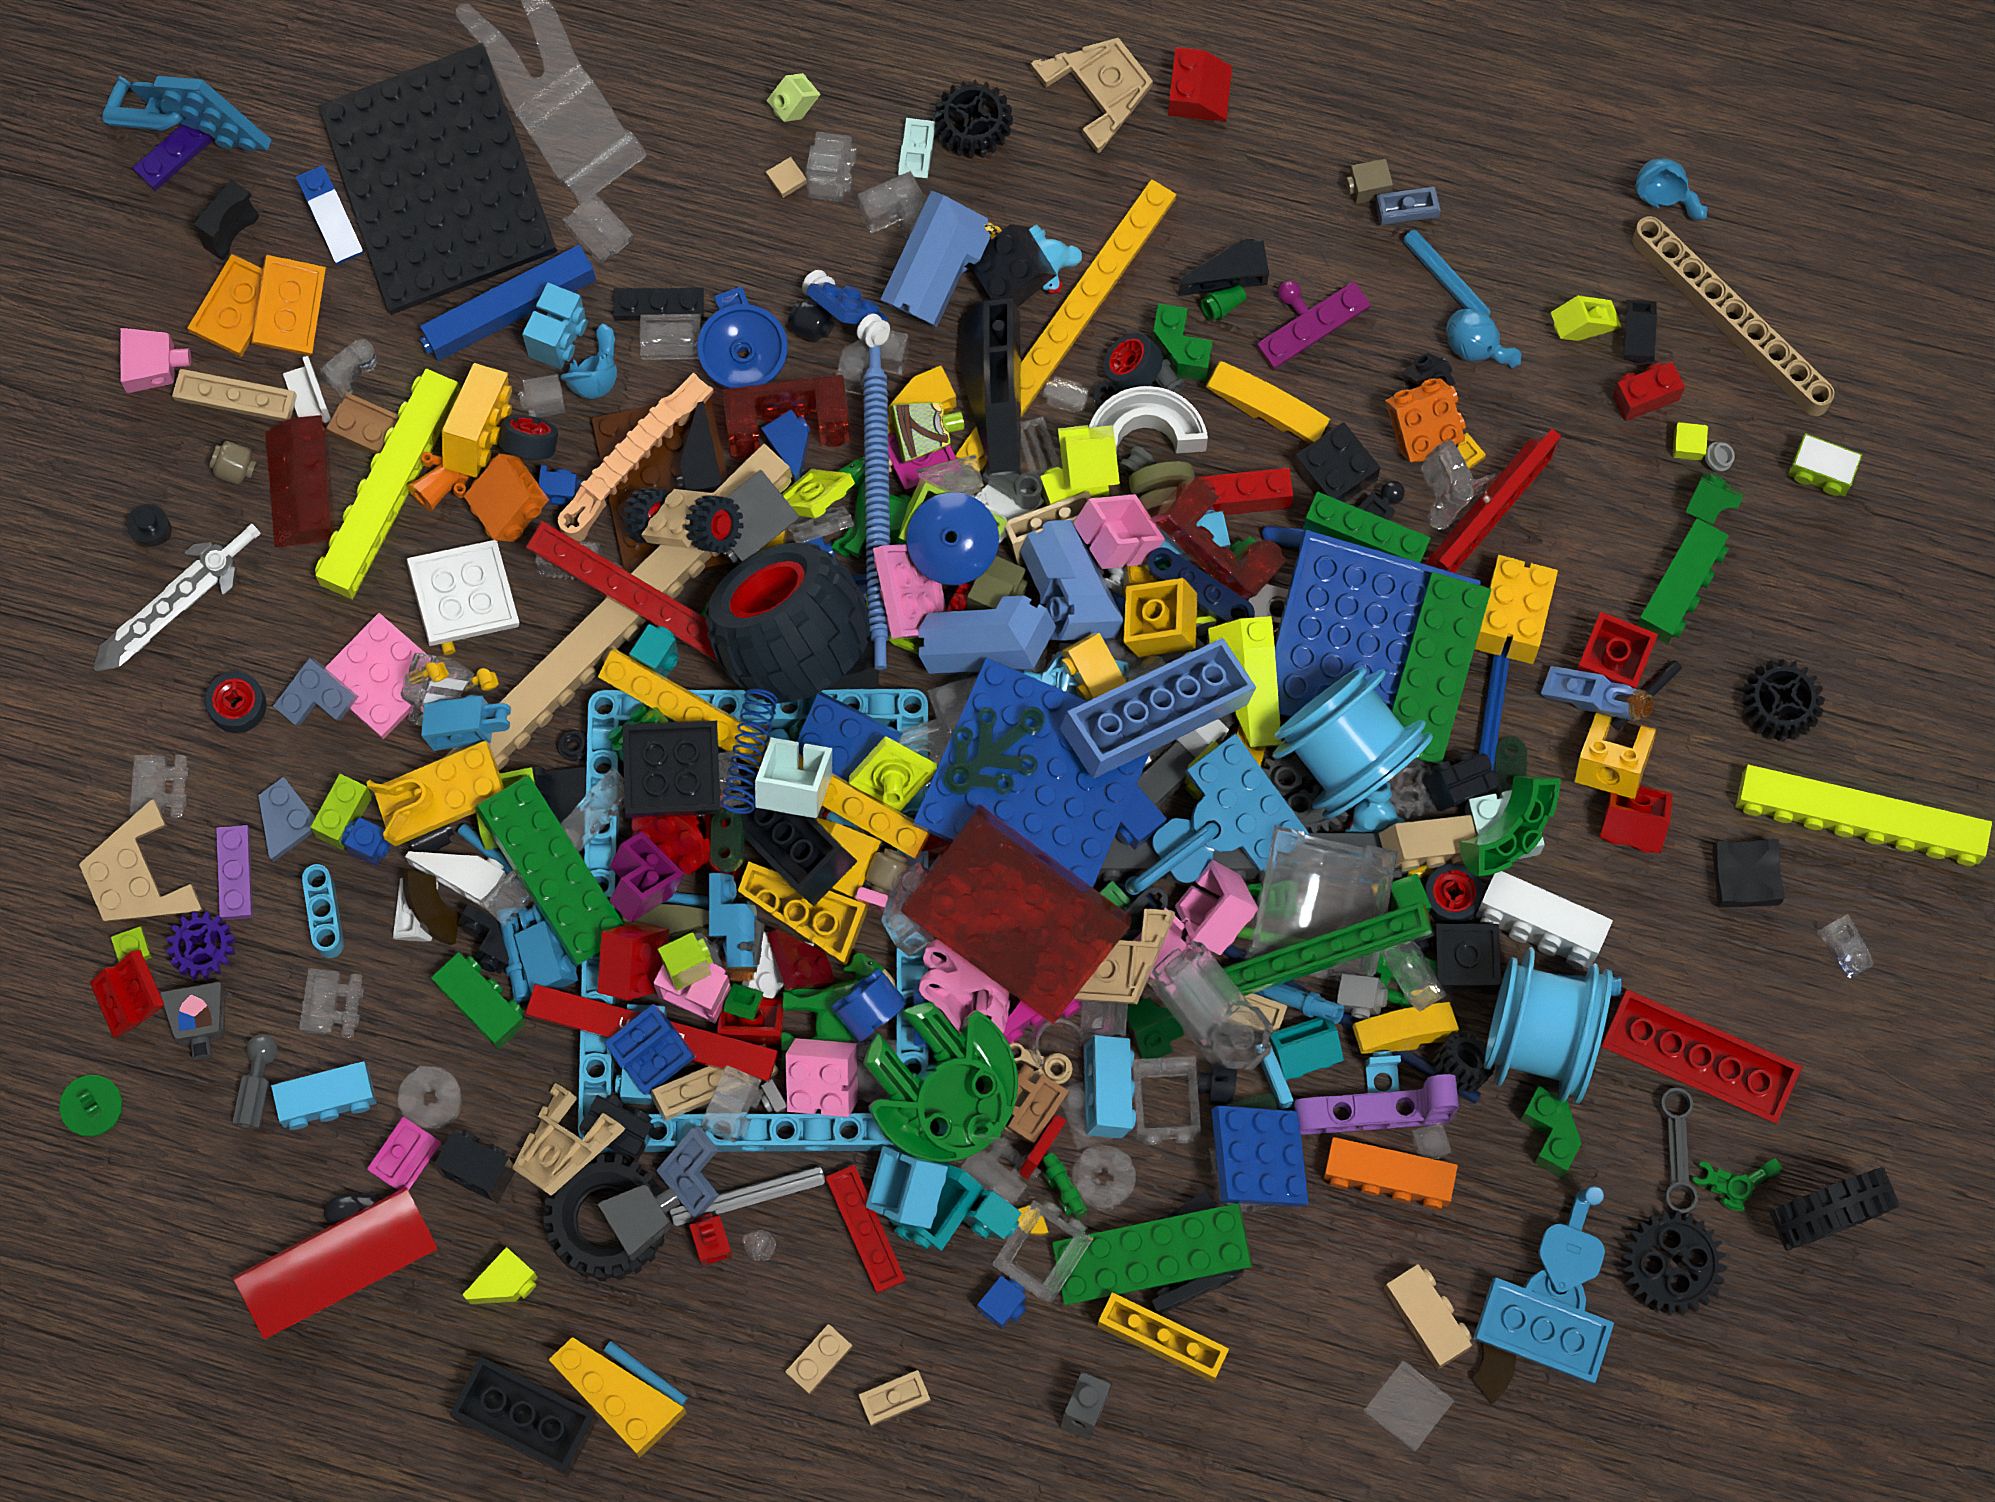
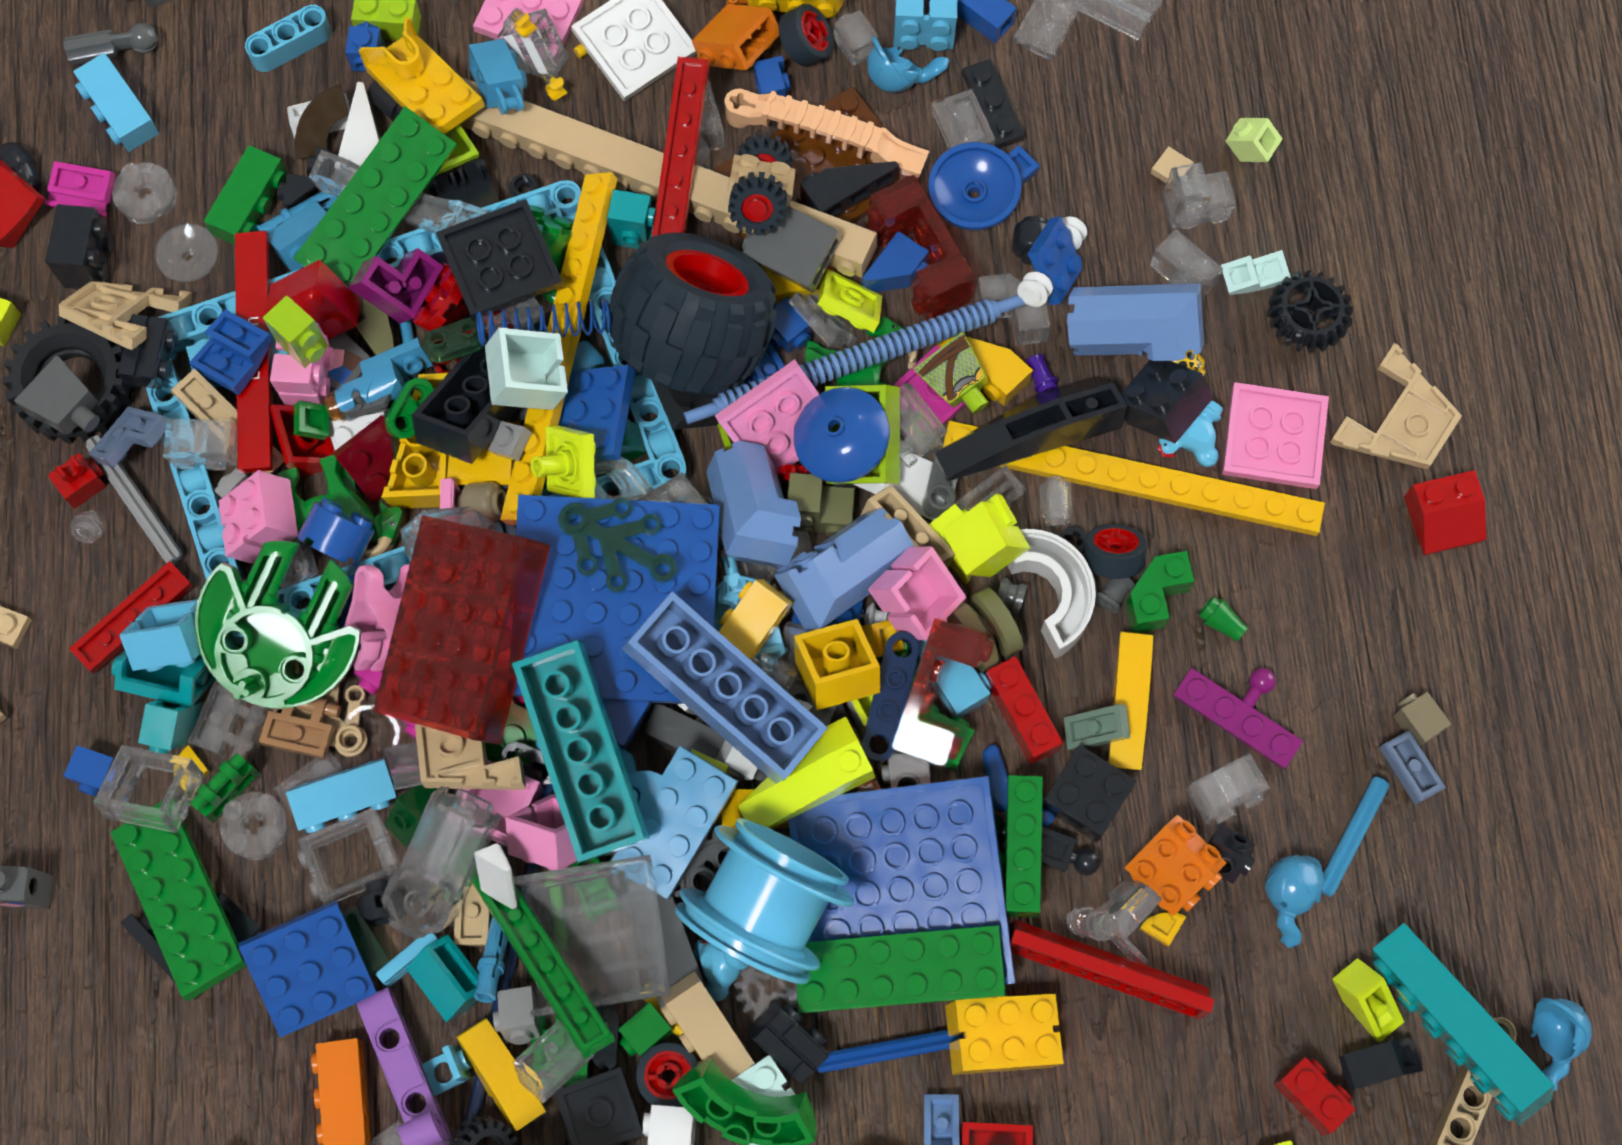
camera: 70 degrees right, 0 degrees up
(321, 1002) = (204, 69): clear plate -> none
(512, 1058) = (181, 242): none -> clear dish
(774, 905) = (405, 406): none -> green plate
(845, 823) = (510, 441): none -> light grey plate
(949, 362) = (1041, 374): none -> dark purple pin
(1041, 1146) = (258, 751): red tile -> none
(1075, 193) = (1275, 435): none -> bright pink plate
(1162, 1337) = (97, 939): yellow brick -> none
(1170, 844) = (580, 751): none -> teal brick
(1238, 265) = (1267, 617): black slope -> none
(1244, 960) = (496, 875): none -> white slope
(1283, 437) = (1097, 727): none -> sand green plate
(1373, 355) = (1229, 789): none -> clear brick
(1509, 765) = (831, 1088): clear green plate -> none
(1637, 252) = (1462, 1025): none -> teal brick

